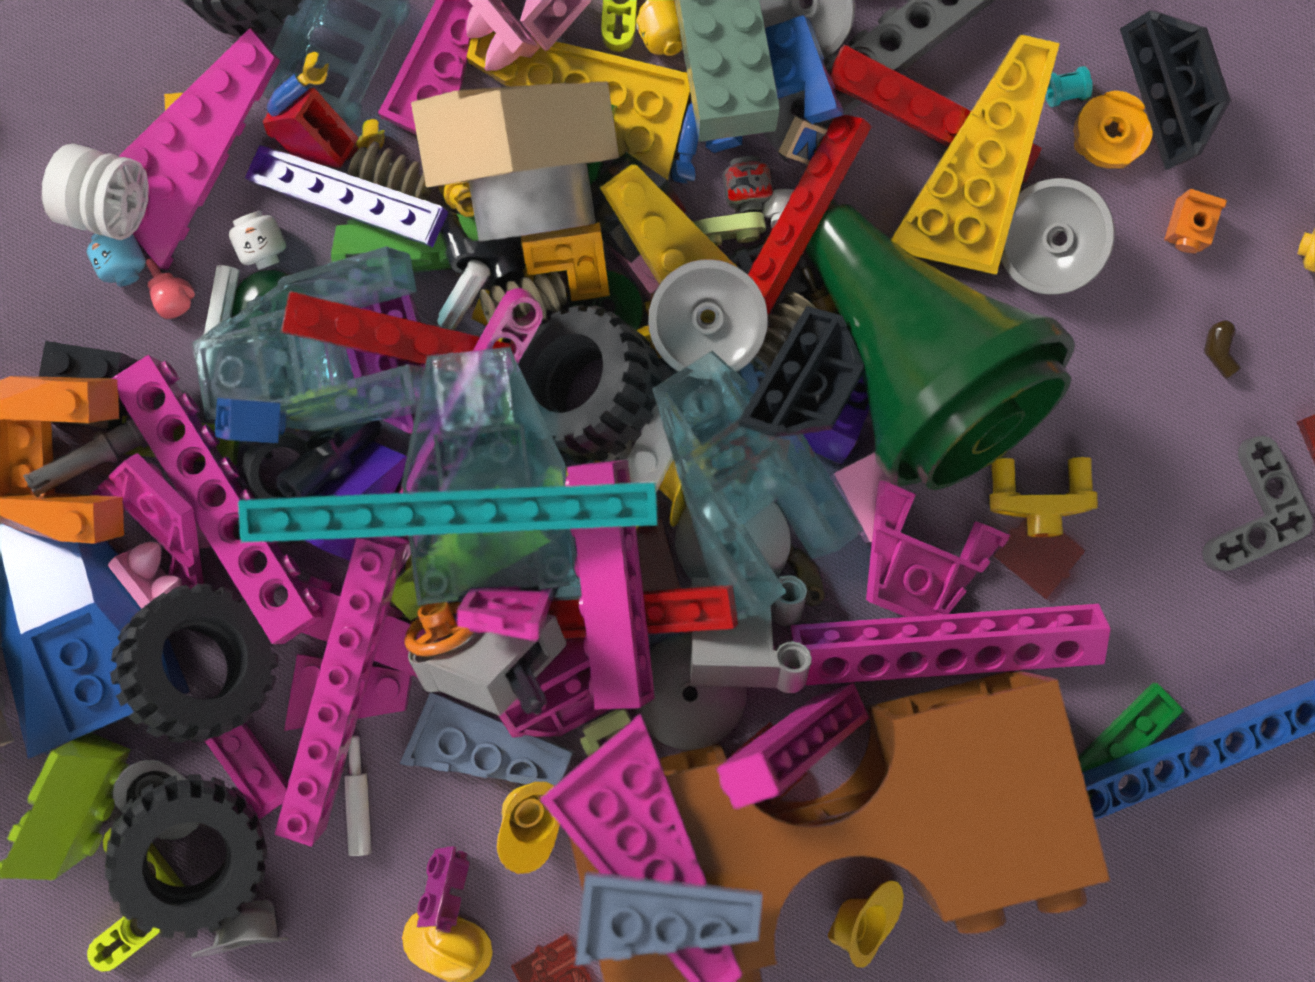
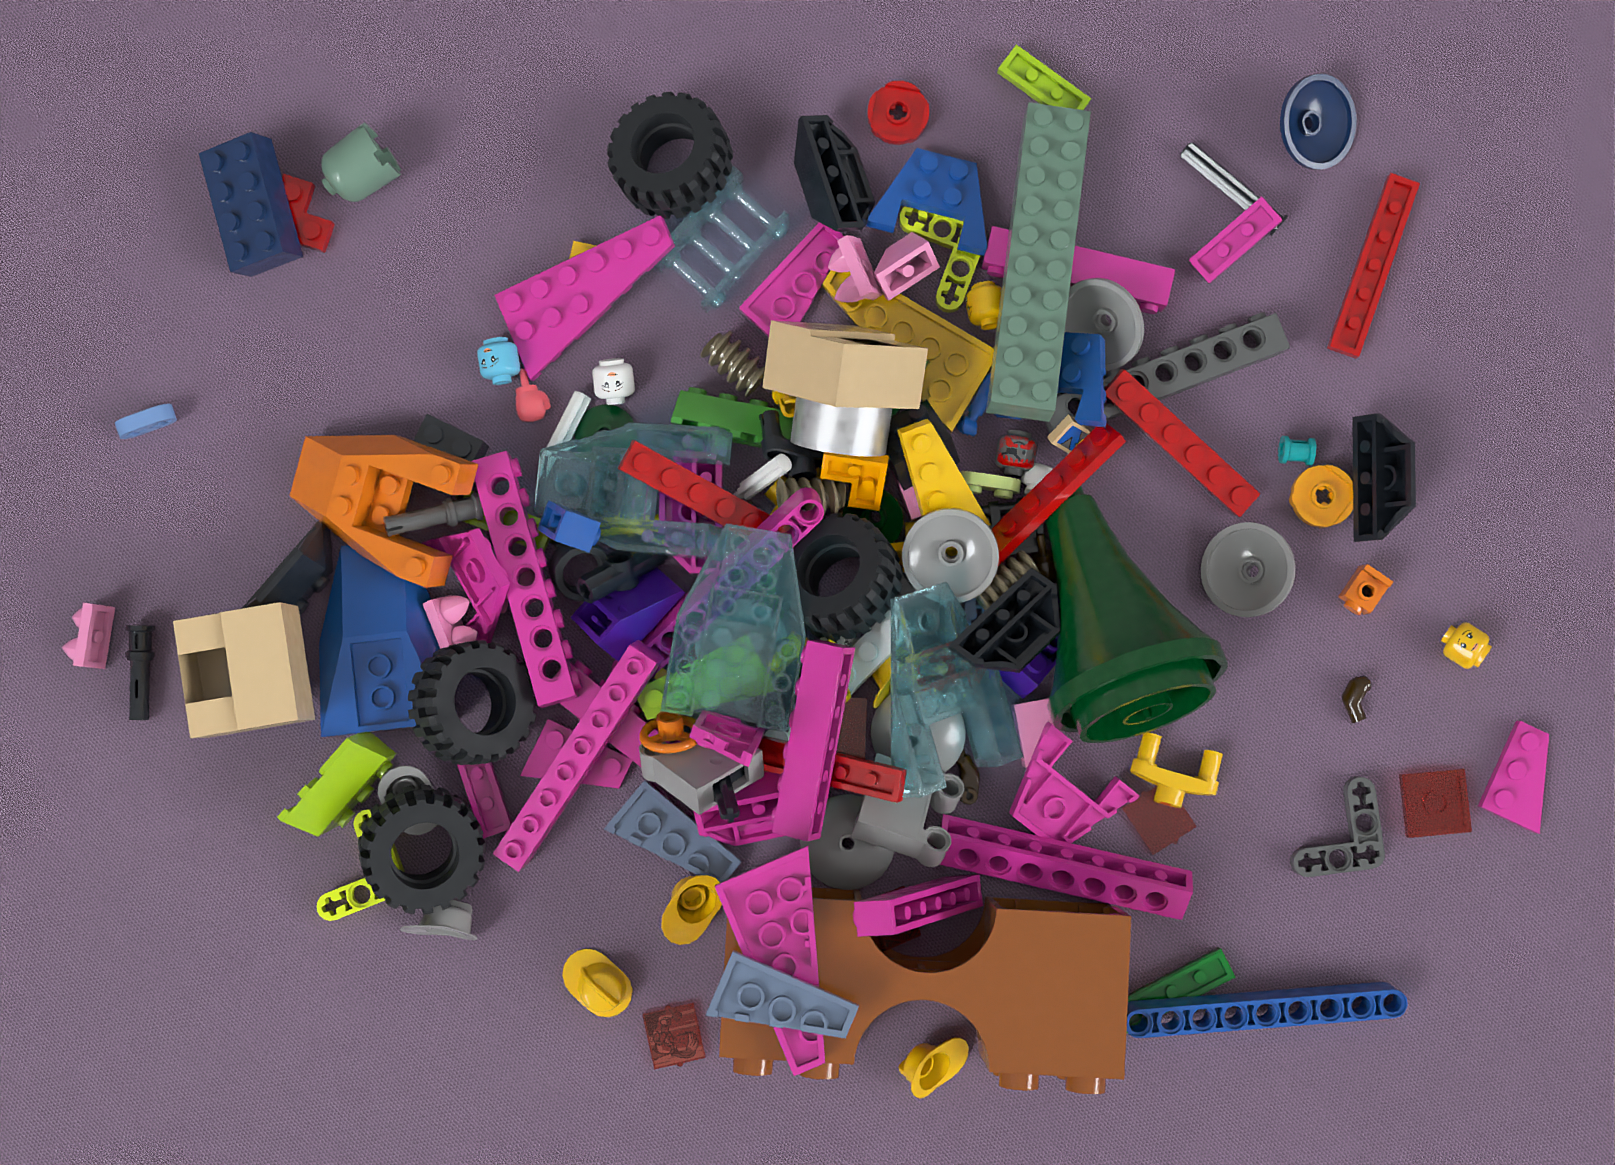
camera: 20 degrees right, 0 degrees up
(95, 191) = (502, 310): white wheel -> none
(309, 125) = (684, 306): red torso -> none
(347, 195) = (695, 368): tile -> none
(357, 804) = (560, 850): white axle -> none
(445, 871) = (614, 924): magenta hinge -> none
(448, 512) = (707, 648): teal plate -> none
(605, 726) = (773, 849): yellowish green bracket -> none
(975, 186) = (1195, 511): yellow wing -> none

